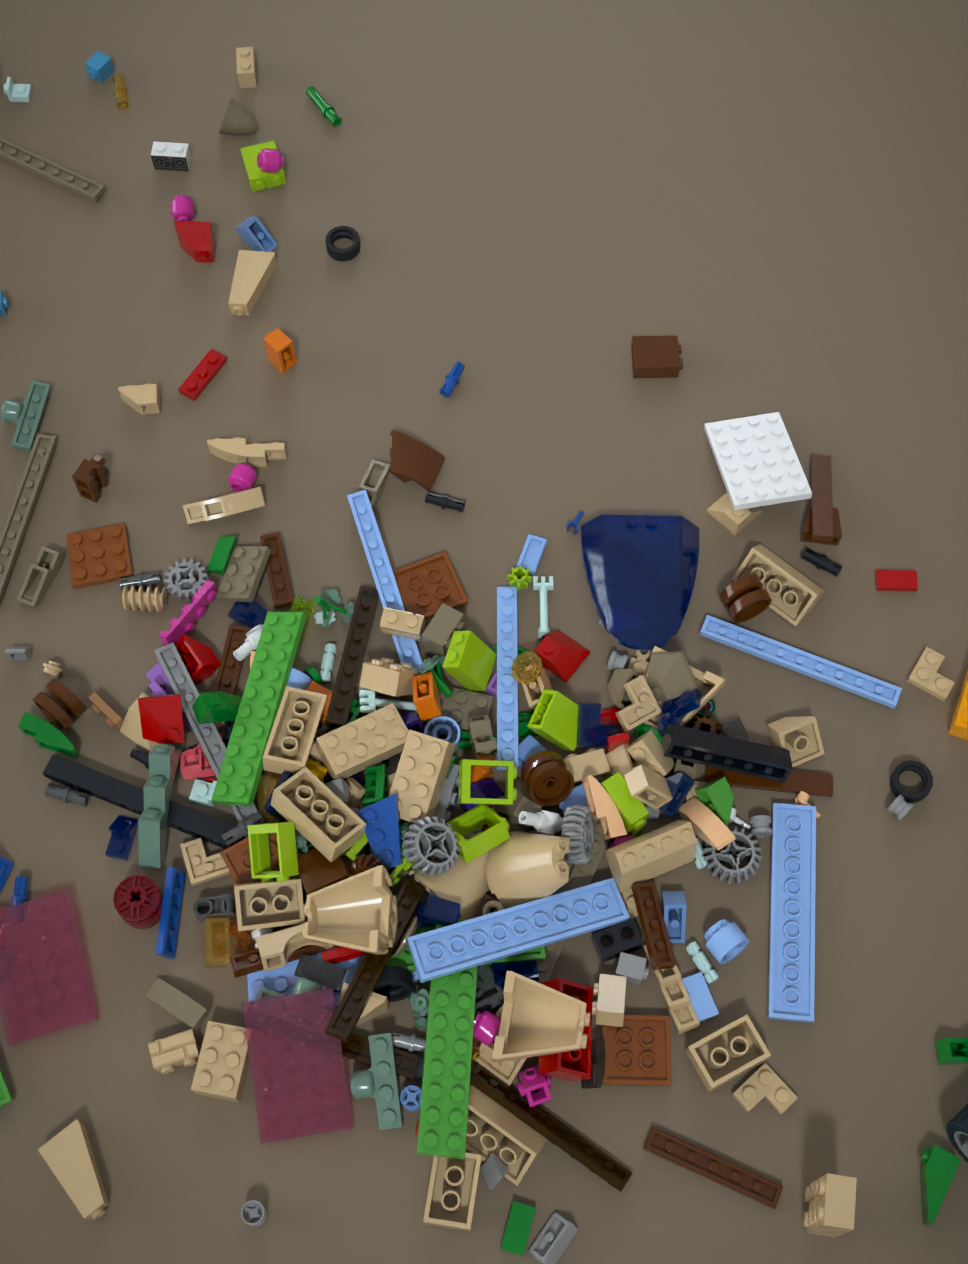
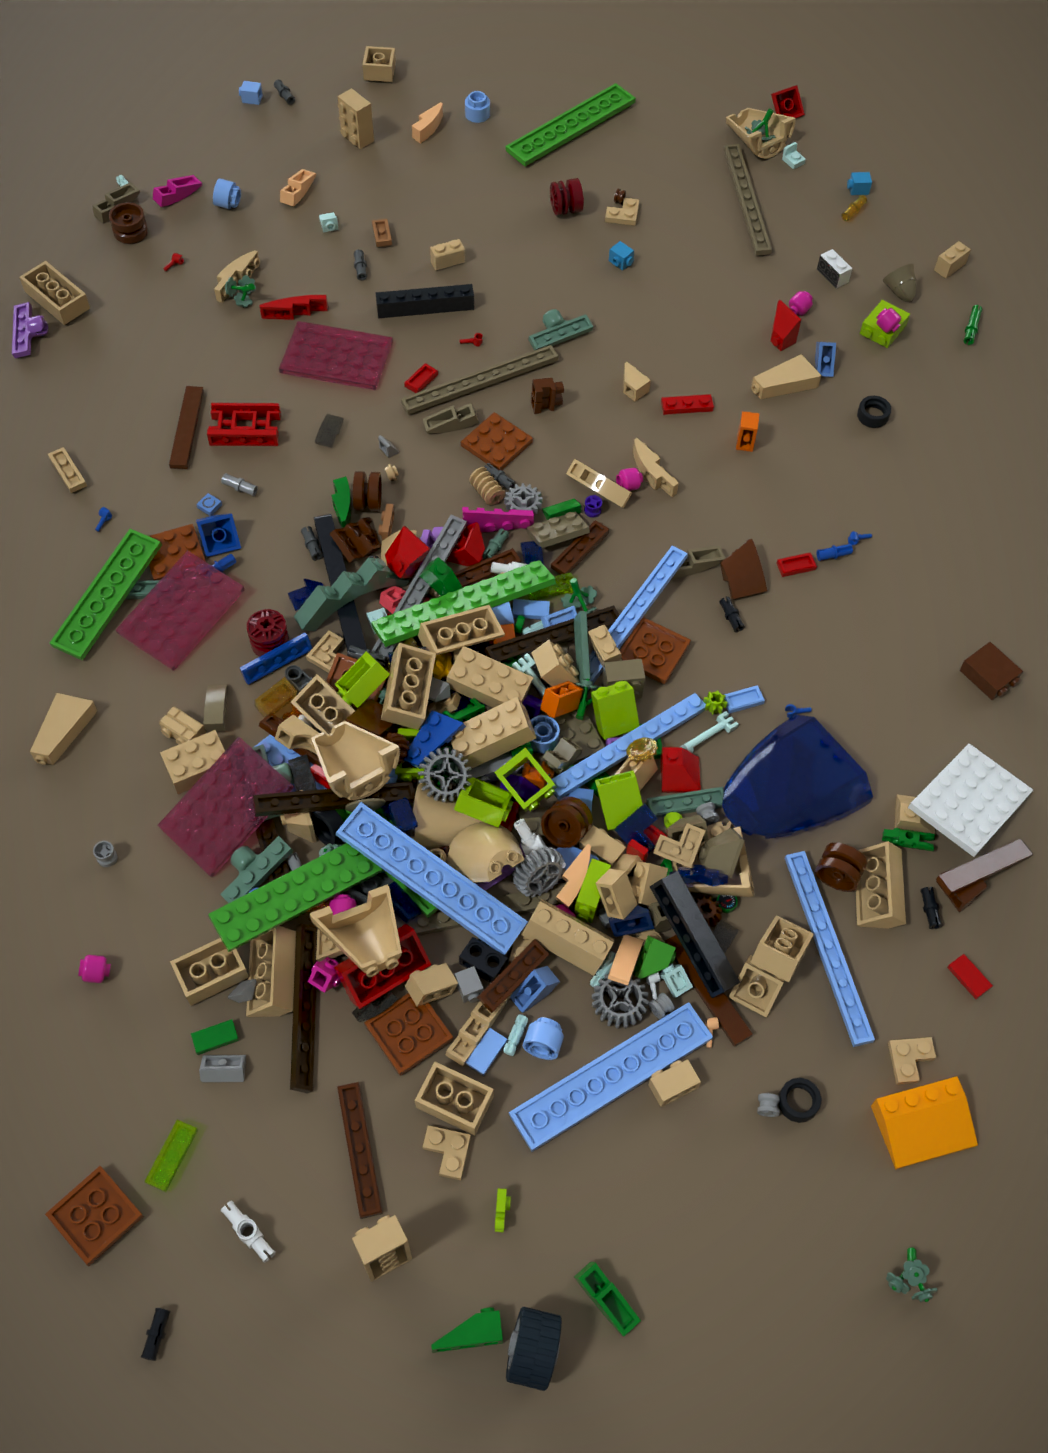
camera: 50 degrees right, 5 degrees down
(102, 751) = (356, 539): none -> reddish brown slope
(210, 635) = (495, 544): none -> sand green pin
(242, 522) = (595, 502): none -> dark purple wheel
(307, 653) = (530, 608): none -> light blue tile
(336, 639) = (559, 616): none -> light blue tile
(386, 641) = (582, 646): none -> sand green tile
(438, 416) = (796, 564): none -> red tile
(451, 356) = (854, 537): none -> blue hand
(592, 669) = (685, 802): none -> sand green tile
(601, 694) = (671, 818): none -> lime plate
(747, 797) = (676, 979): none -> light aqua bracket
(752, 531) = (909, 838): none -> green hinge
(785, 696) = (782, 948): none -> tan brick
(833, 865) = (674, 1082): none -> tan brick
(844, 1079) = (503, 1204): none -> lime plate

